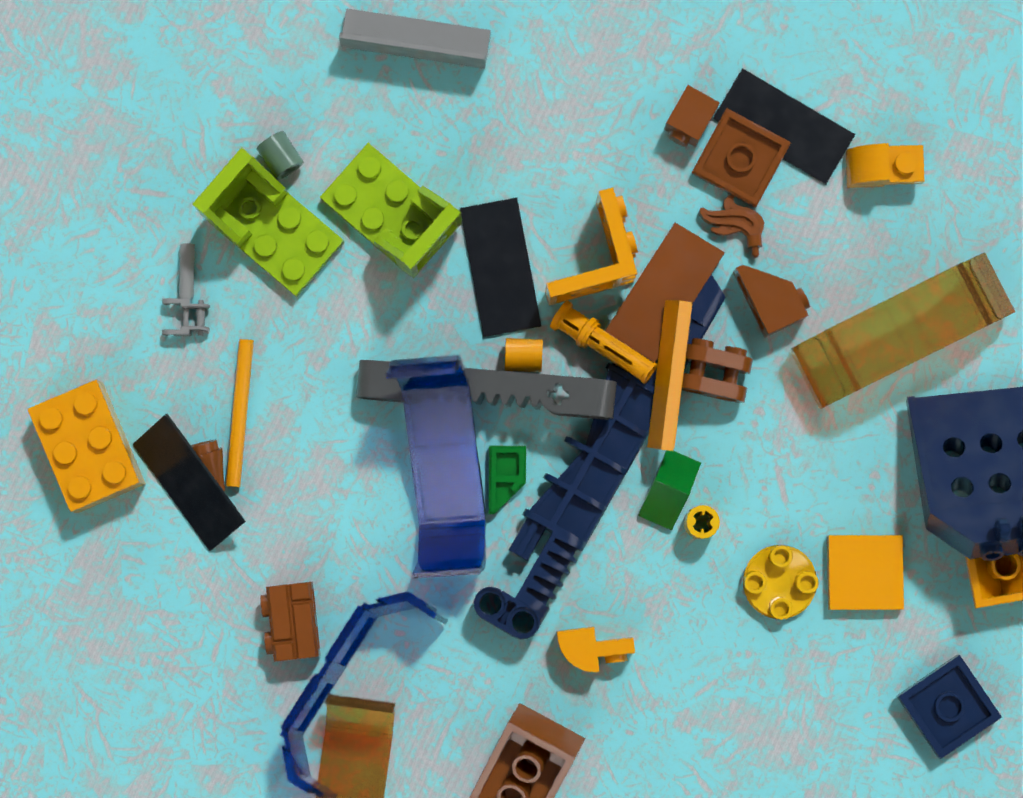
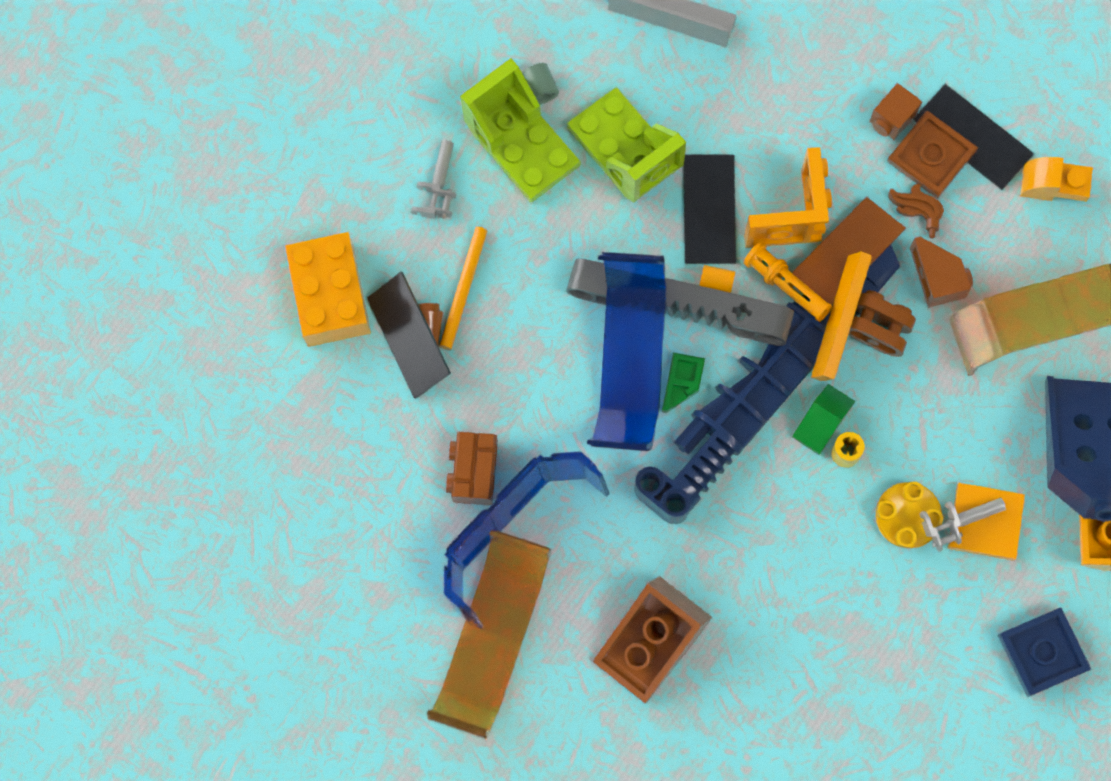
camera: 20 degrees right, 10 degrees down
(583, 650) = (723, 540): light orange brick -> none
(836, 580) = (959, 520): none -> light grey piece

